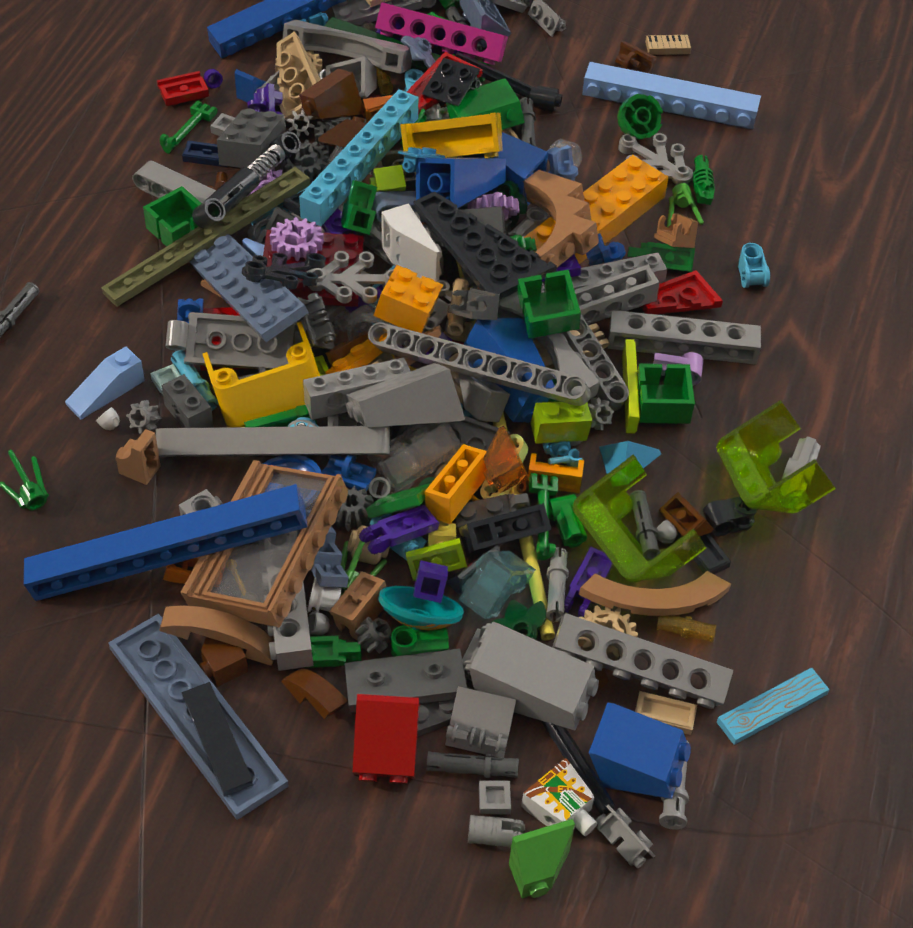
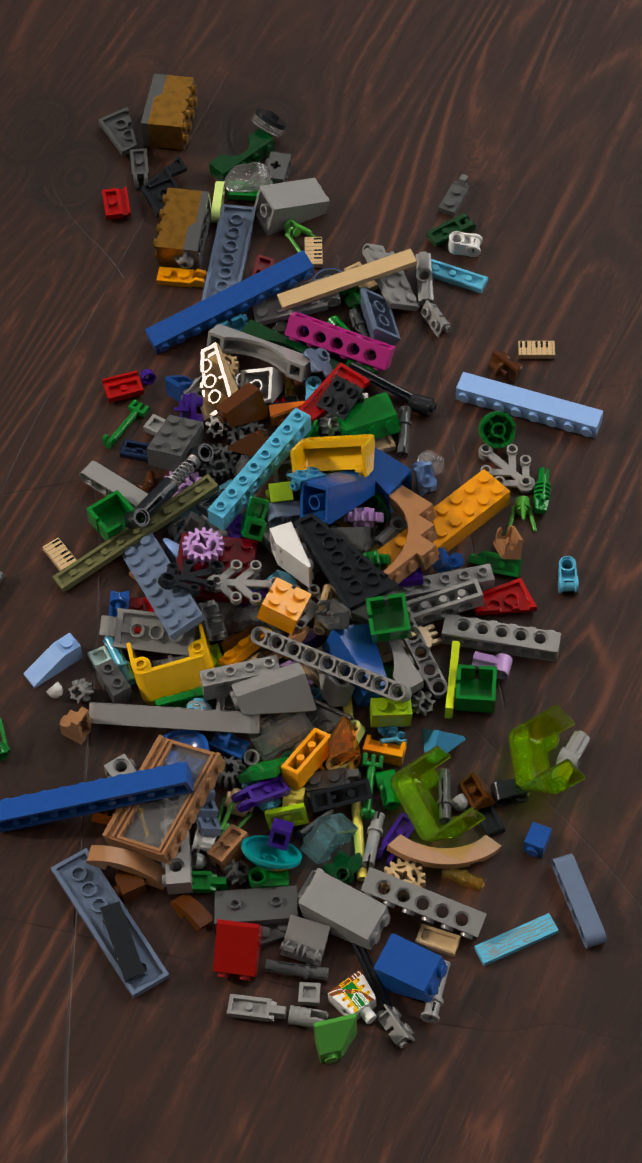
camera: 10 degrees right, 5 degrees up
(108, 263) = (59, 554): none -> tan tile
(417, 823) = (255, 1008): none -> light grey hinge
(777, 573) = (537, 840): none -> blue brick
(850, 650) = (579, 901): none -> sand blue beam

